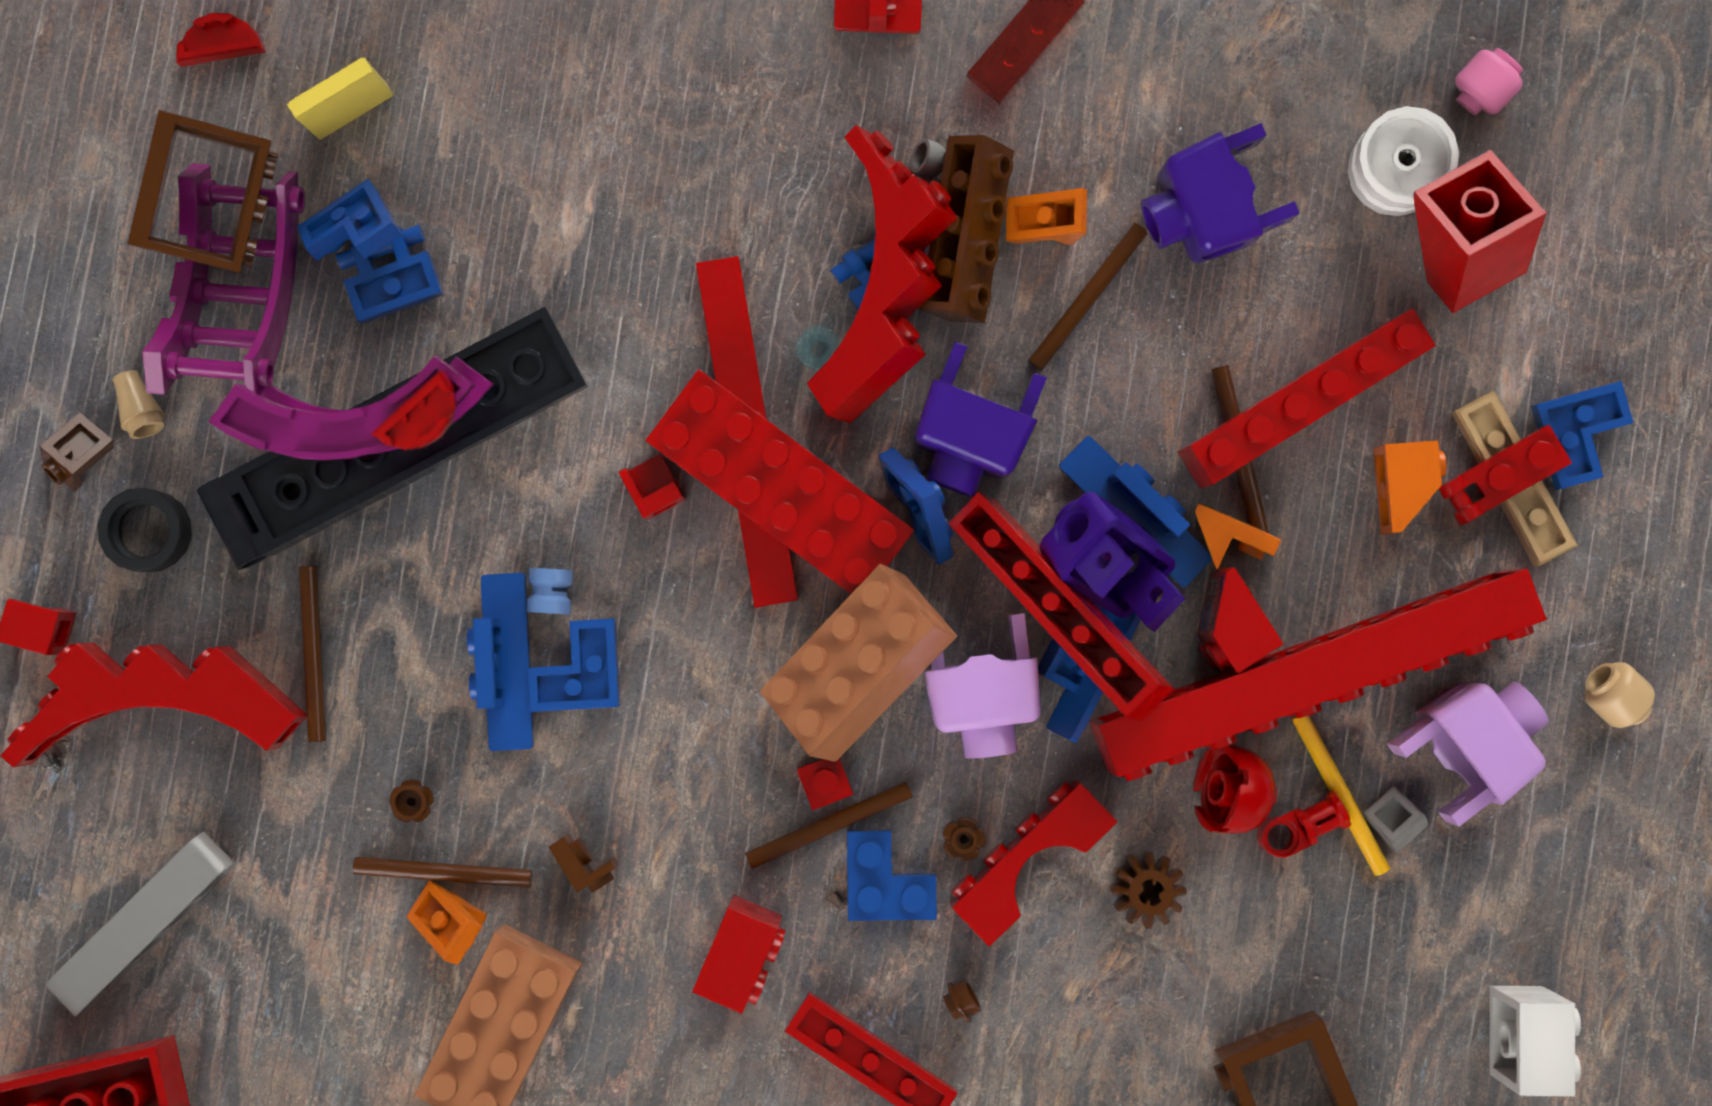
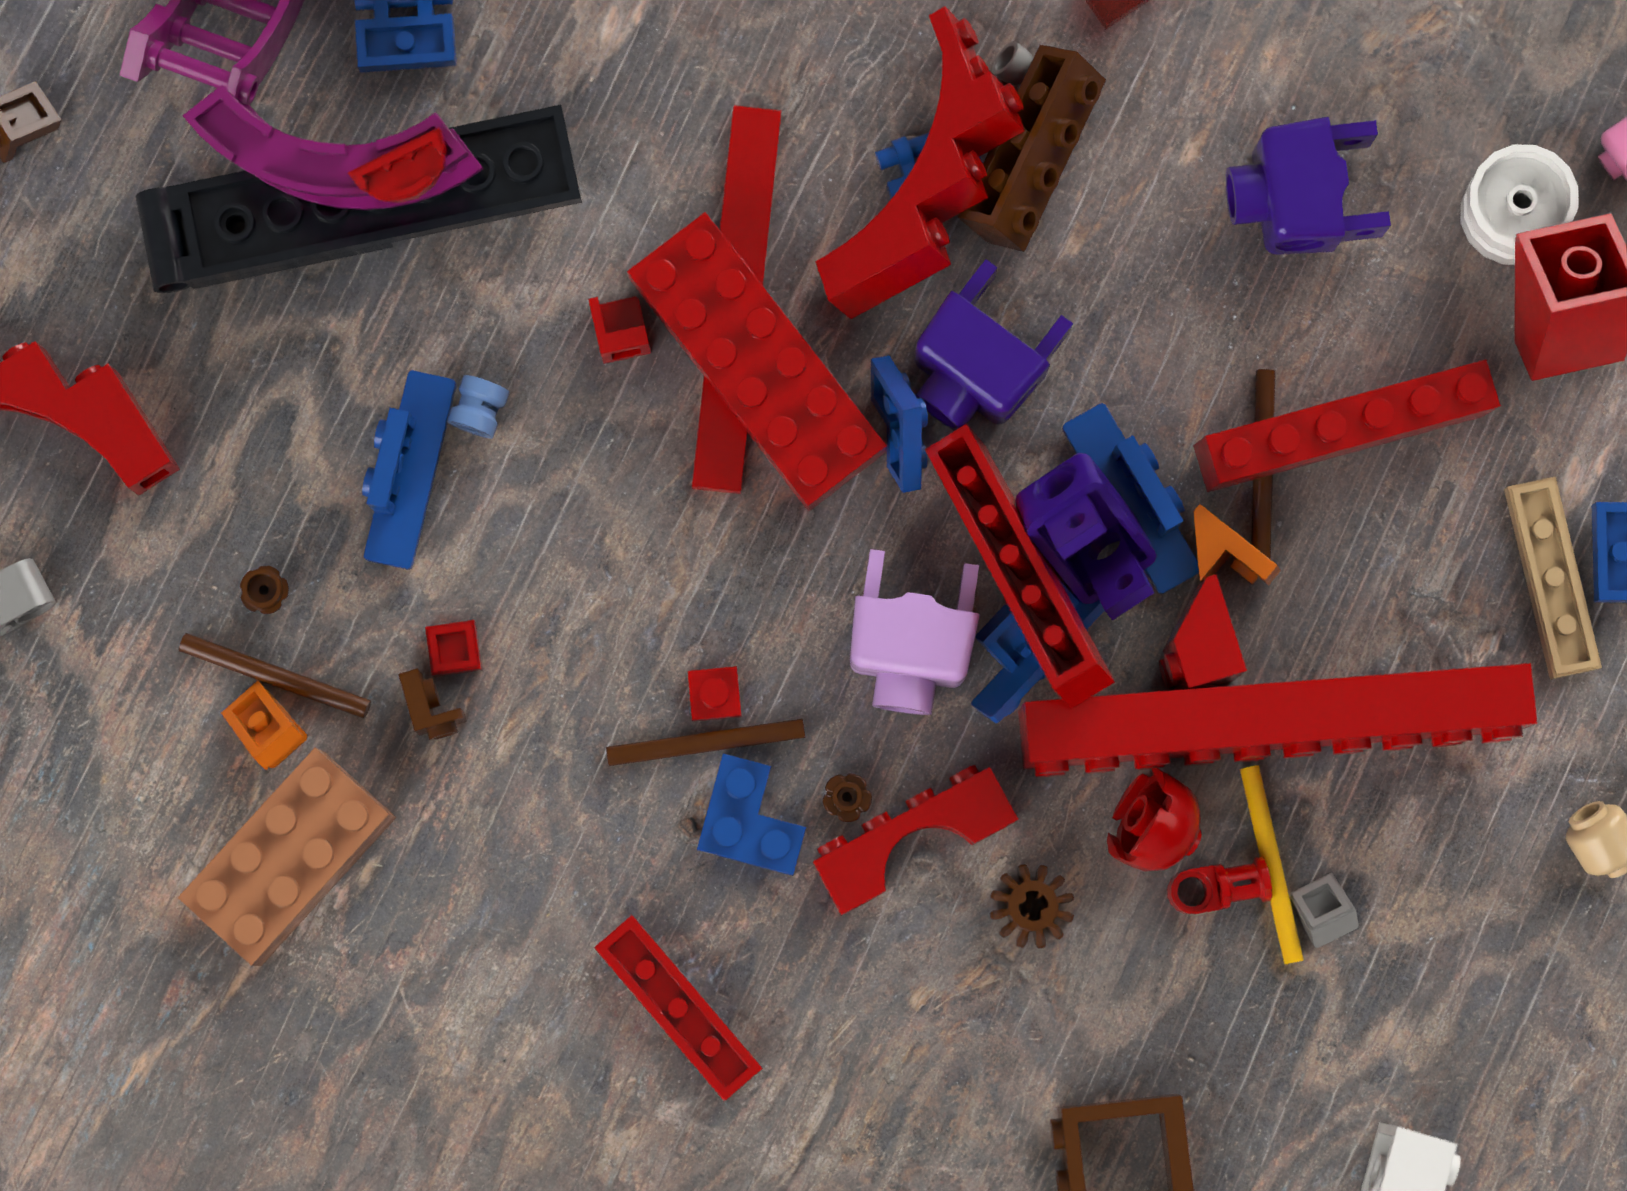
camera: 15 degrees right, 5 degrees down
(110, 530) = (48, 191): black tyre -> none
(137, 410) = (97, 92): tan cone -> none
(312, 653) = (204, 404): reddish brown bar -> none
(589, 805) = (453, 648): none -> red tile
(591, 678) = (494, 512): blue plate -> none
(736, 958) = (570, 846): red brick -> none
(813, 335) = (834, 217): clear light blue plate -> none
(857, 663) = (785, 569): nougat brick -> none
(962, 1001) = (795, 971): reddish brown plate -> none
(1047, 217) = (1121, 159): orange slope -> none
(1087, 297) = (1143, 257): reddish brown bar -> none
(1406, 481) = (1433, 541): orange slope -> none
(1480, 739) = (1438, 843): lavender piece -> none
(1506, 474) = (1542, 567): red plate -> none

